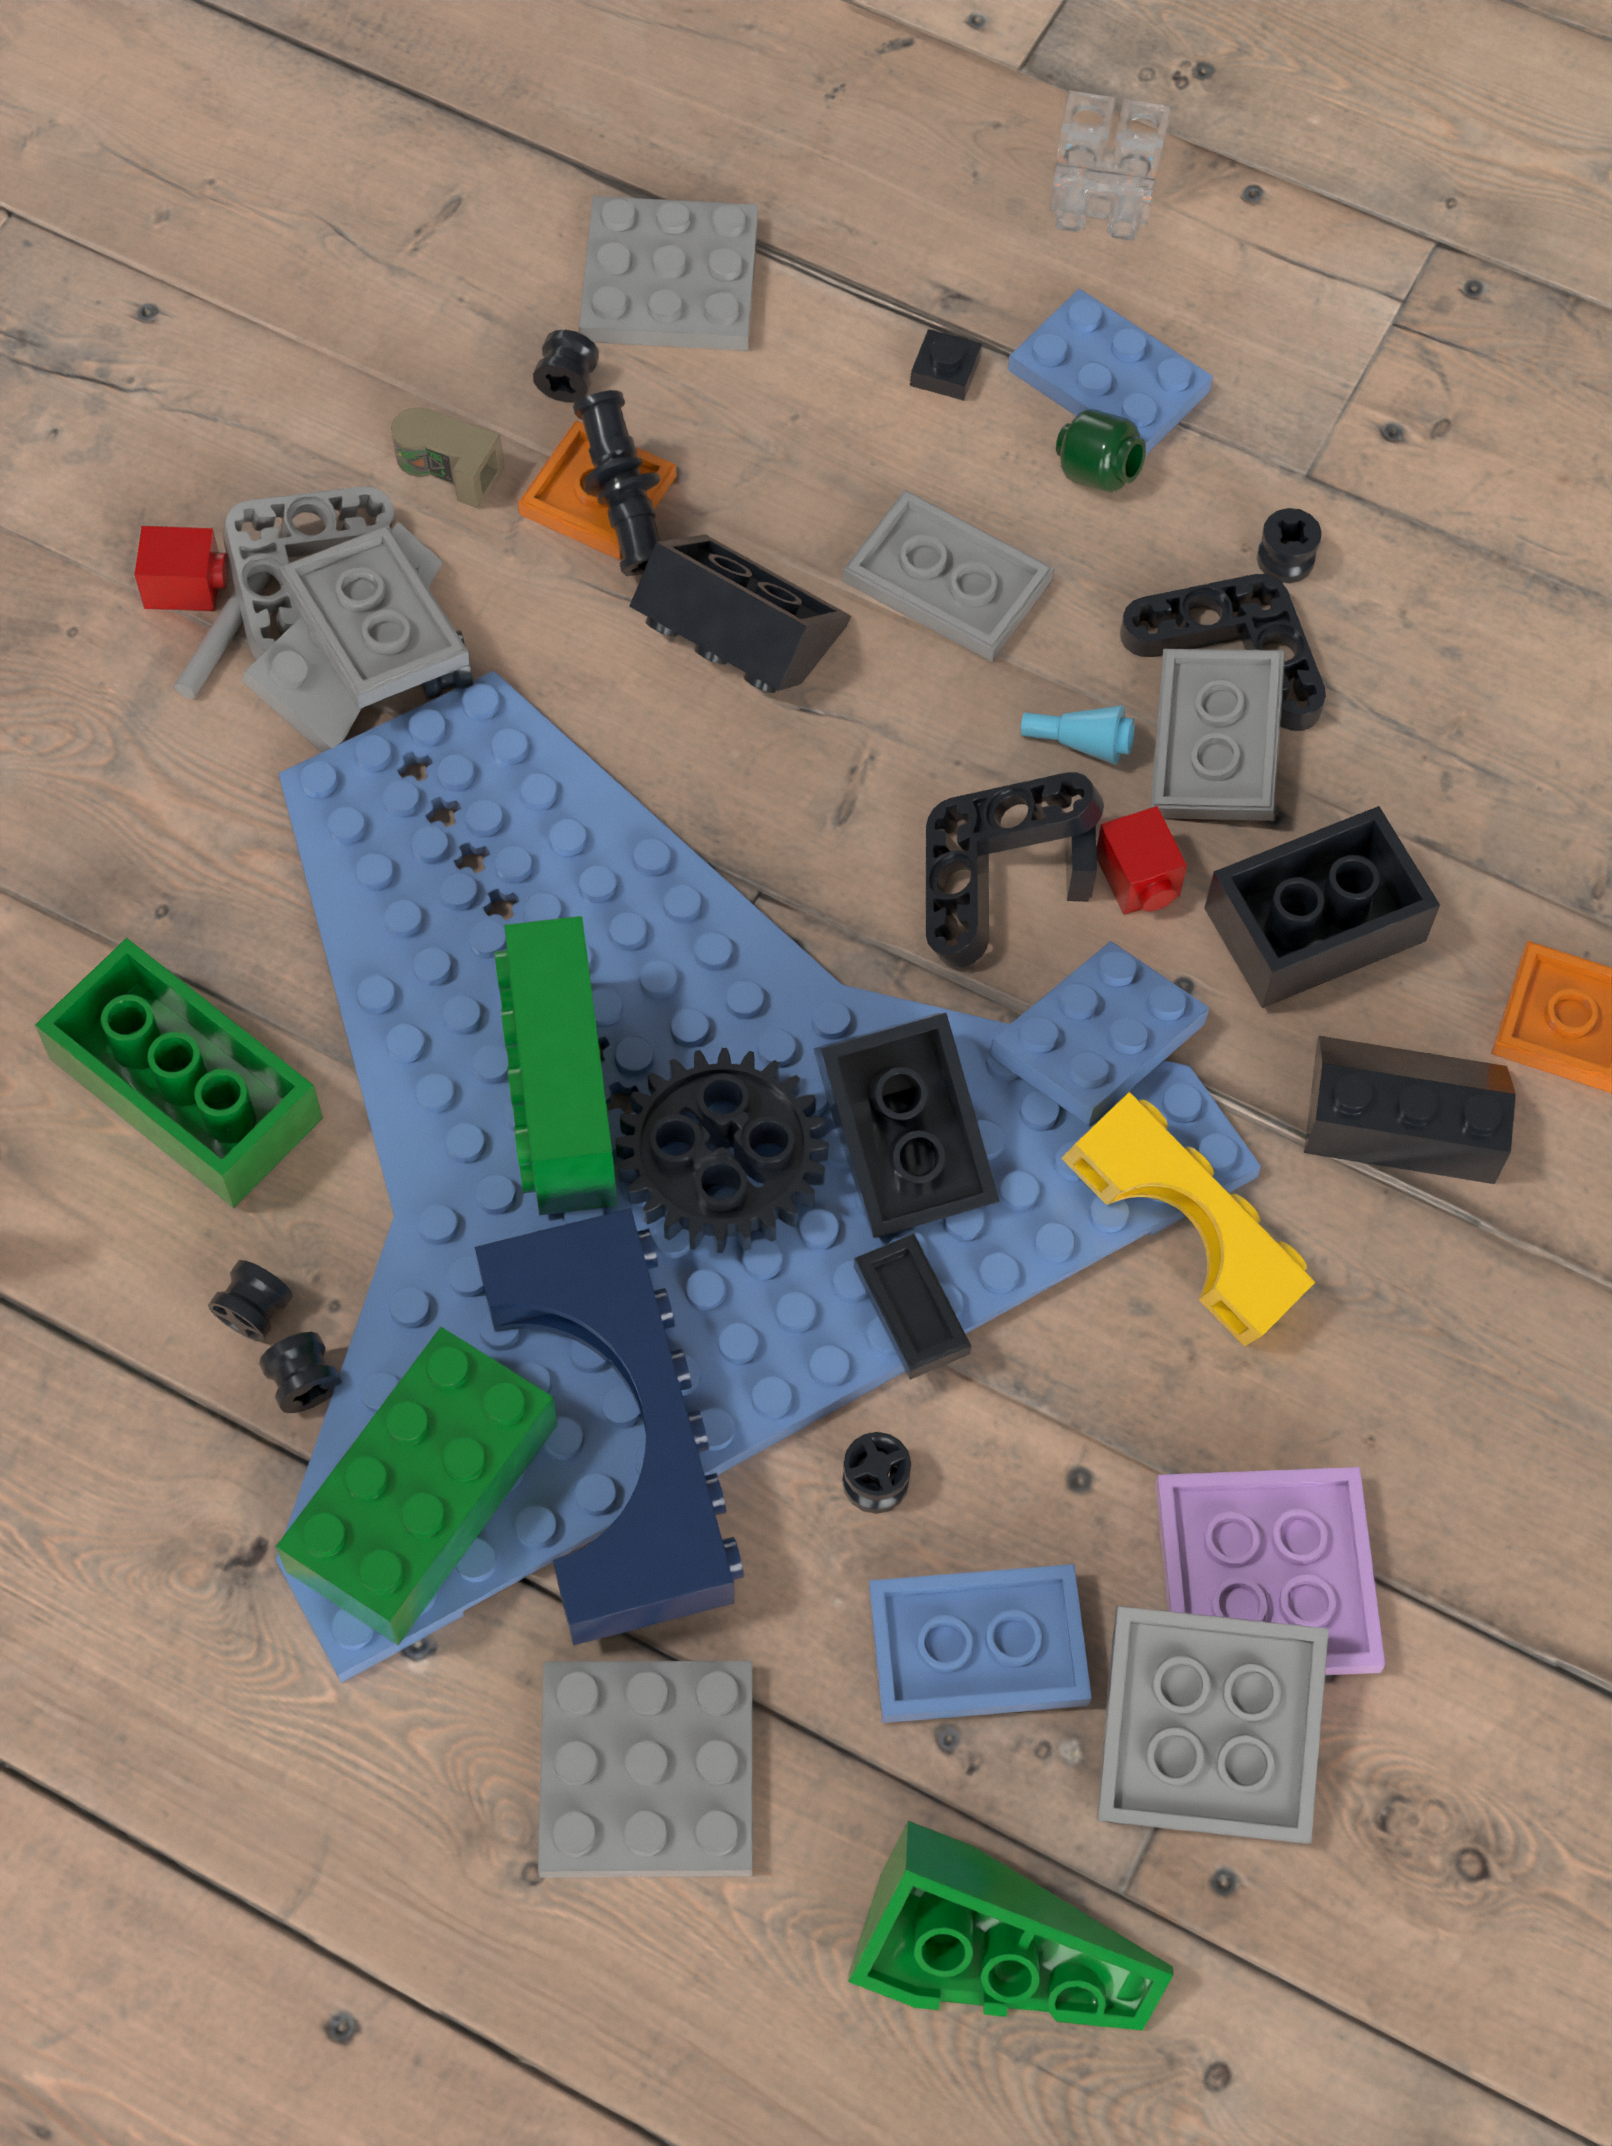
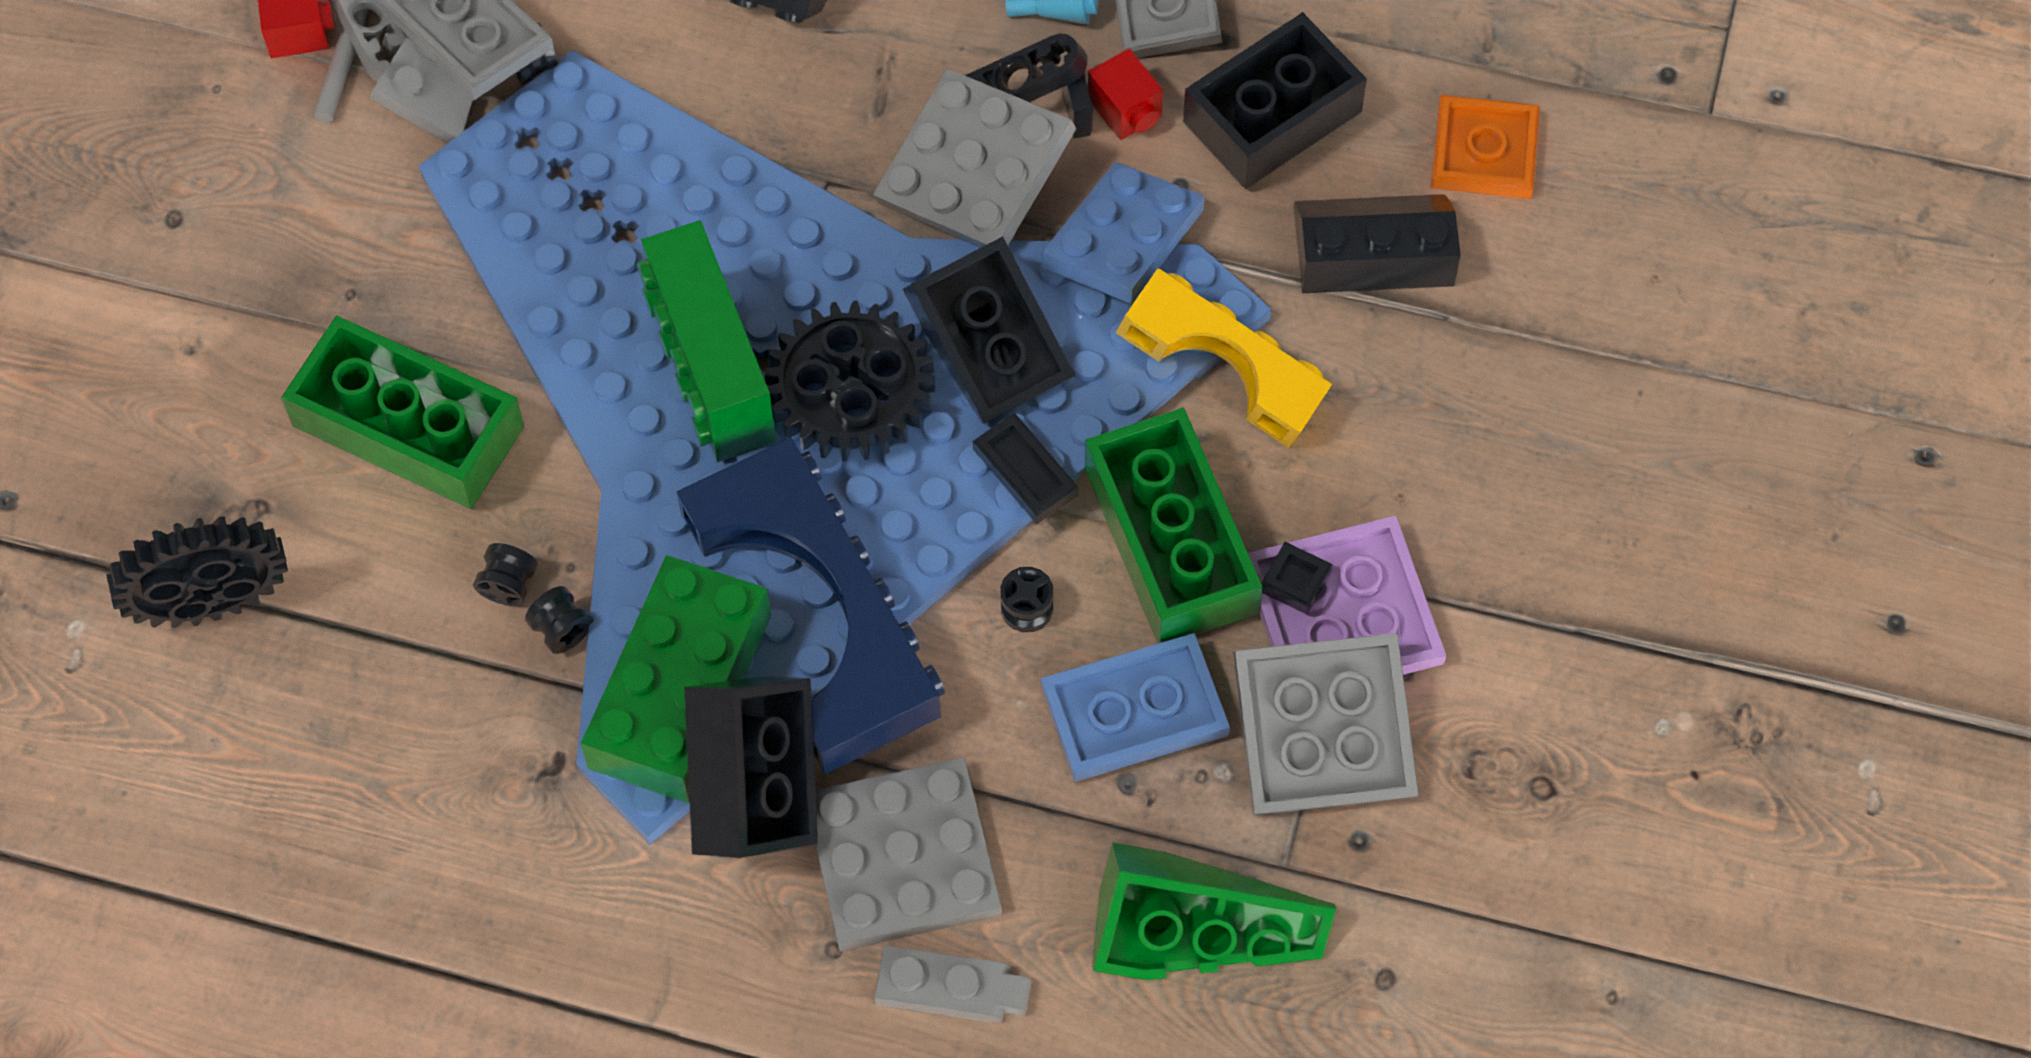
camera: 10 degrees left, 0 degrees up
(477, 1624) = (751, 766): none -> black brick
(665, 1957) = (950, 985): none -> light grey hinge
(938, 907) = (974, 161): none -> light grey plate
(1077, 1422) = (1172, 526): none -> green brick
(1216, 1522) = (1296, 577): none -> black tile

